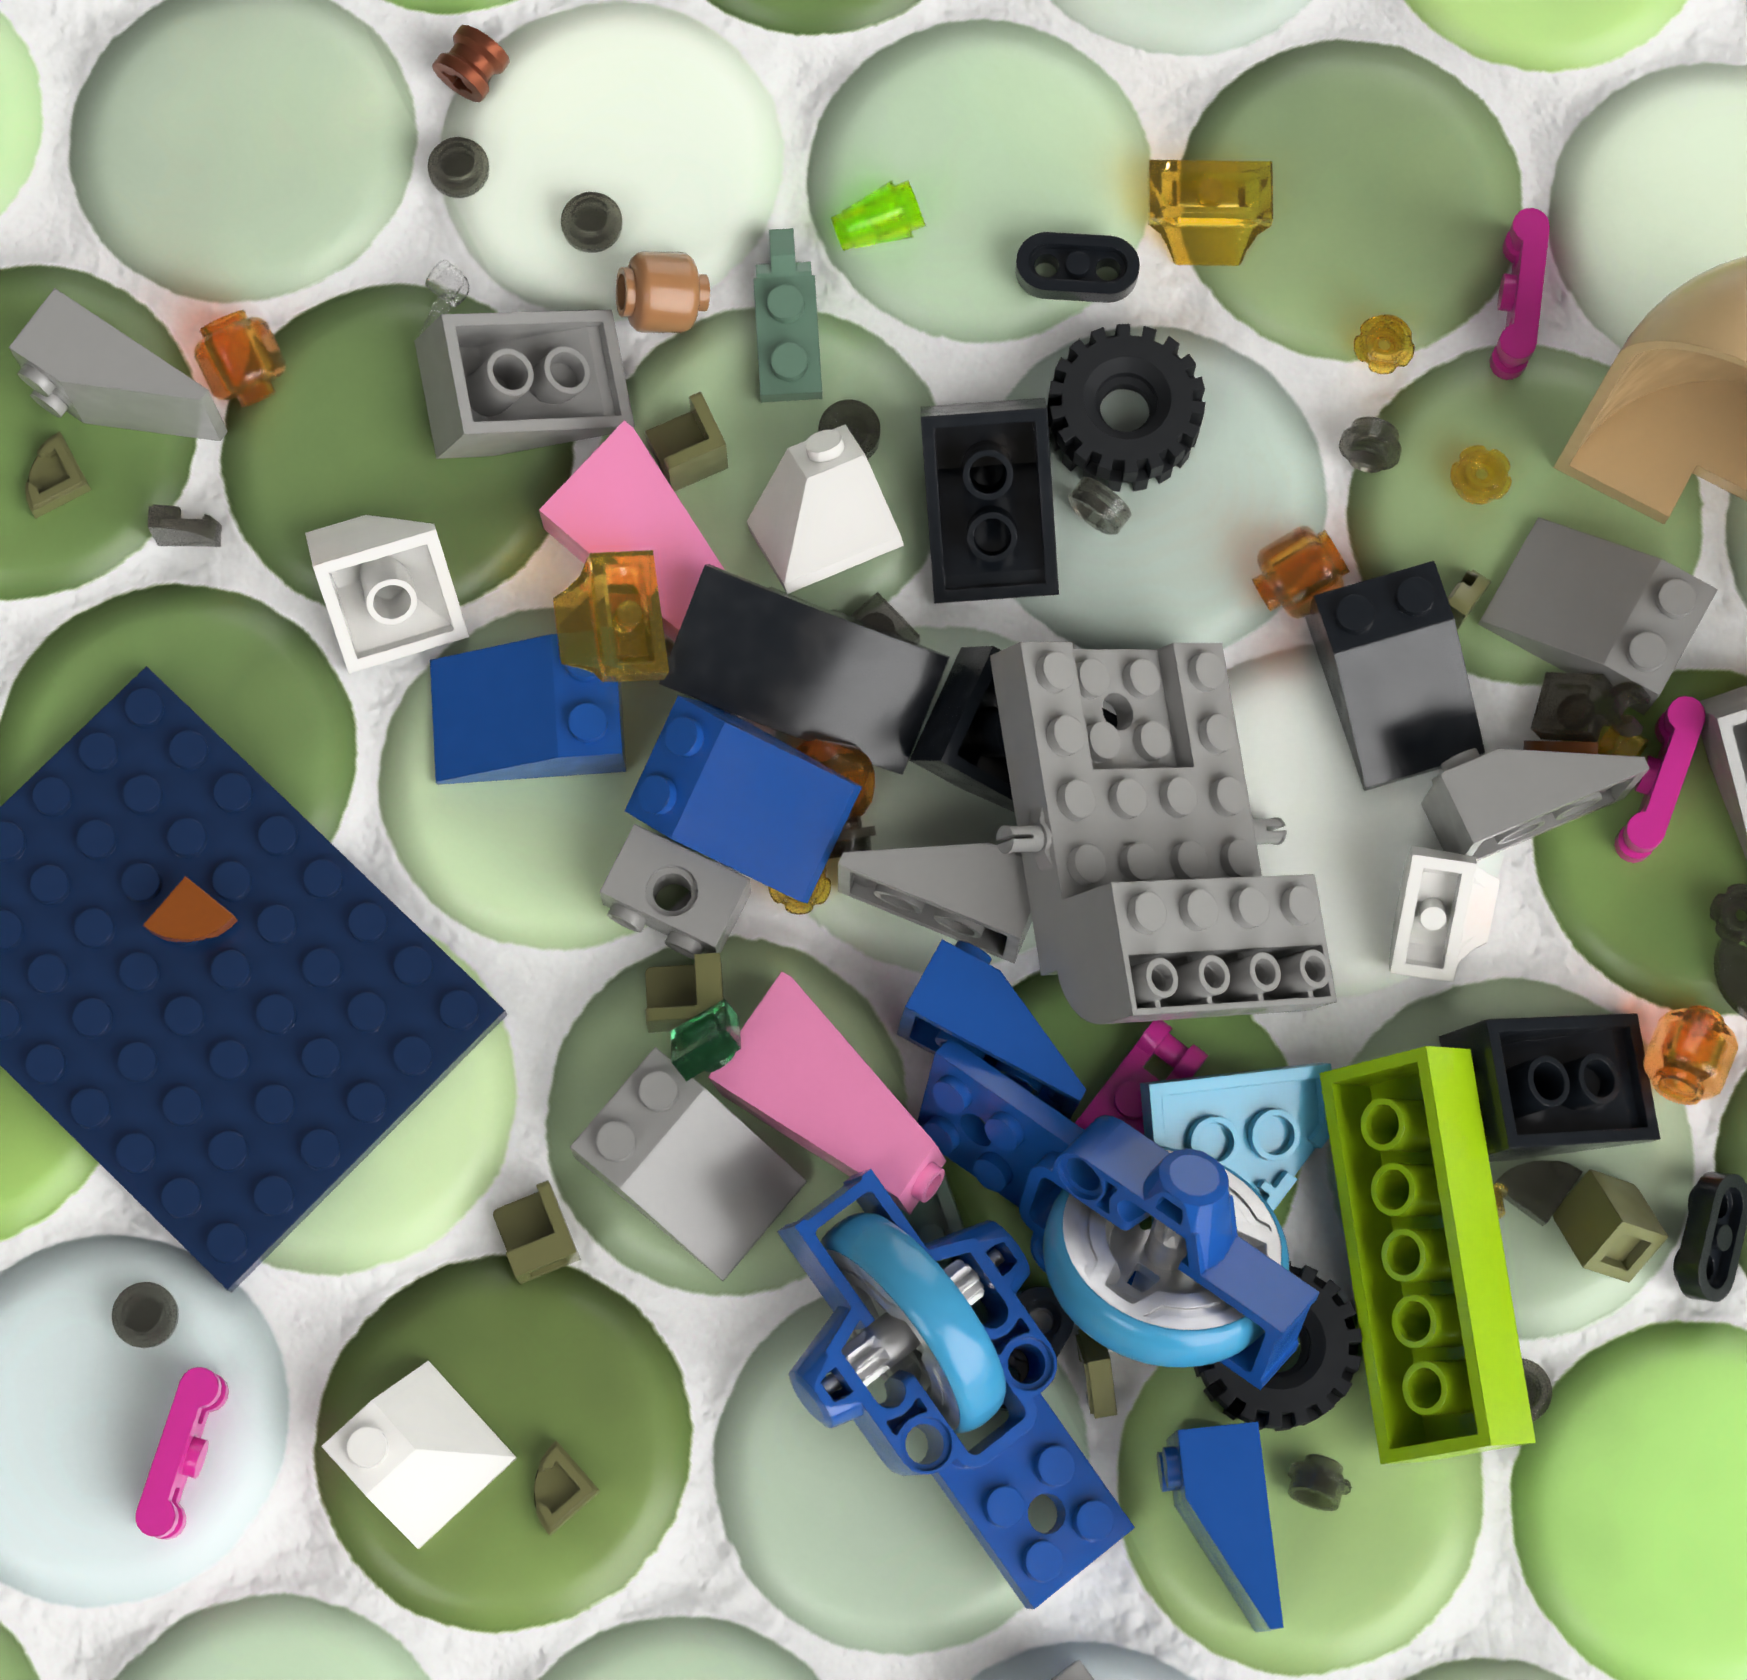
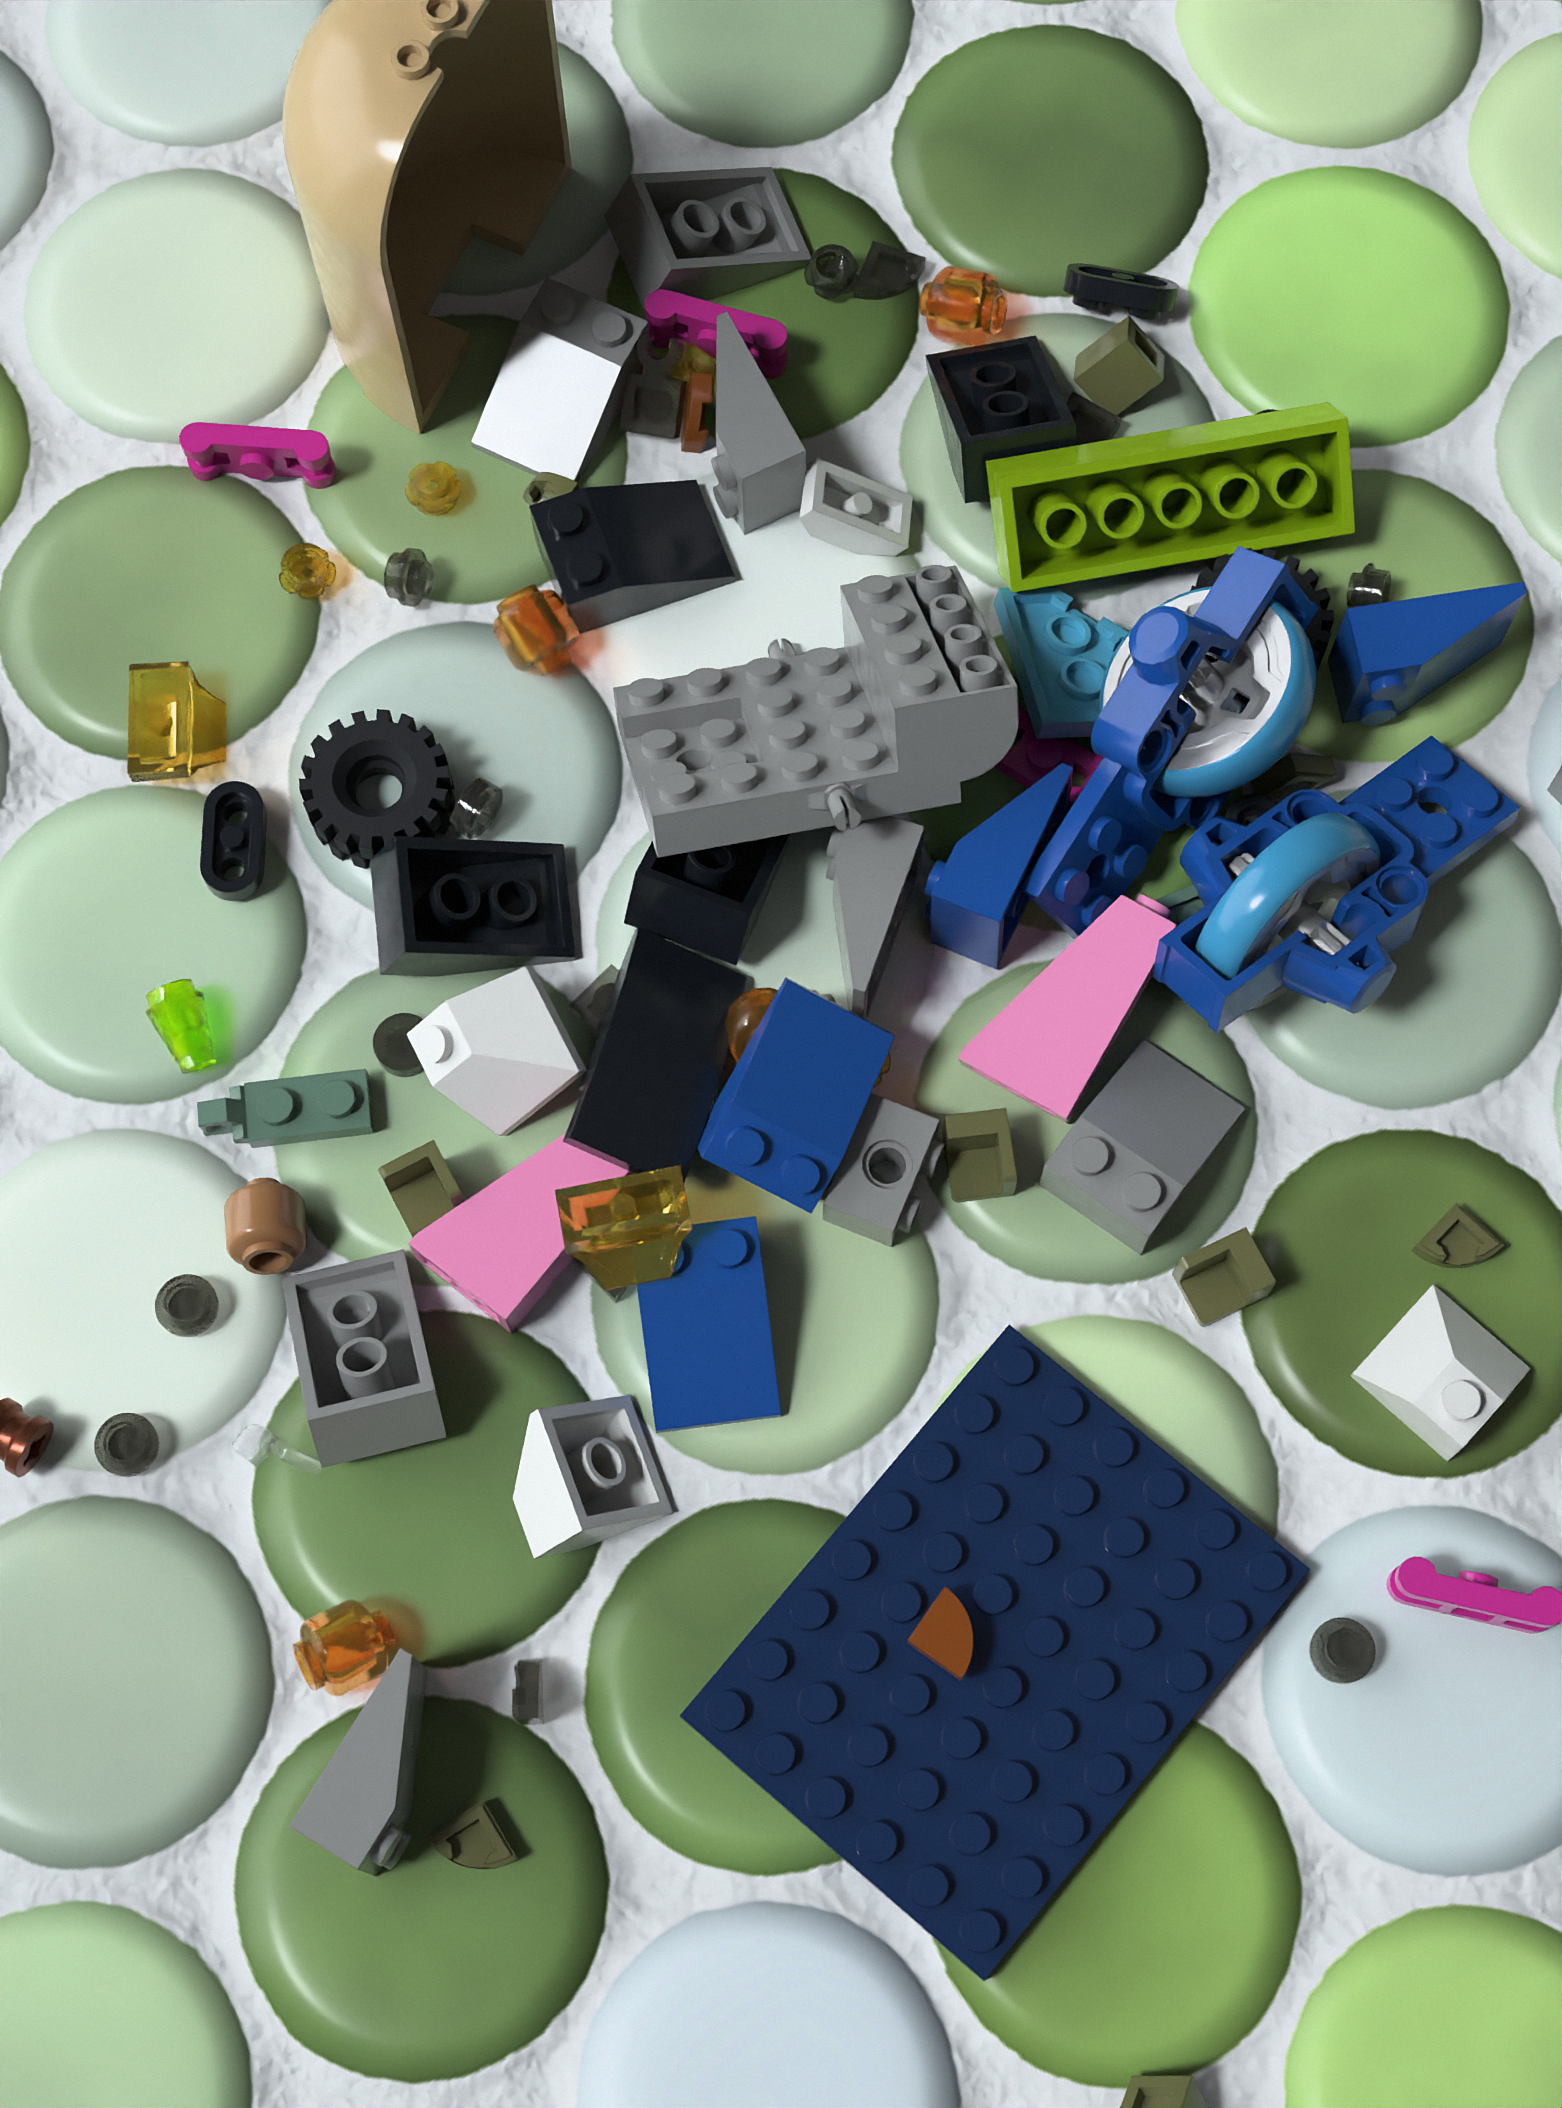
camera: 90 degrees left, 5 degrees down
(706, 1041) = (1035, 1116): clear green plate -> none

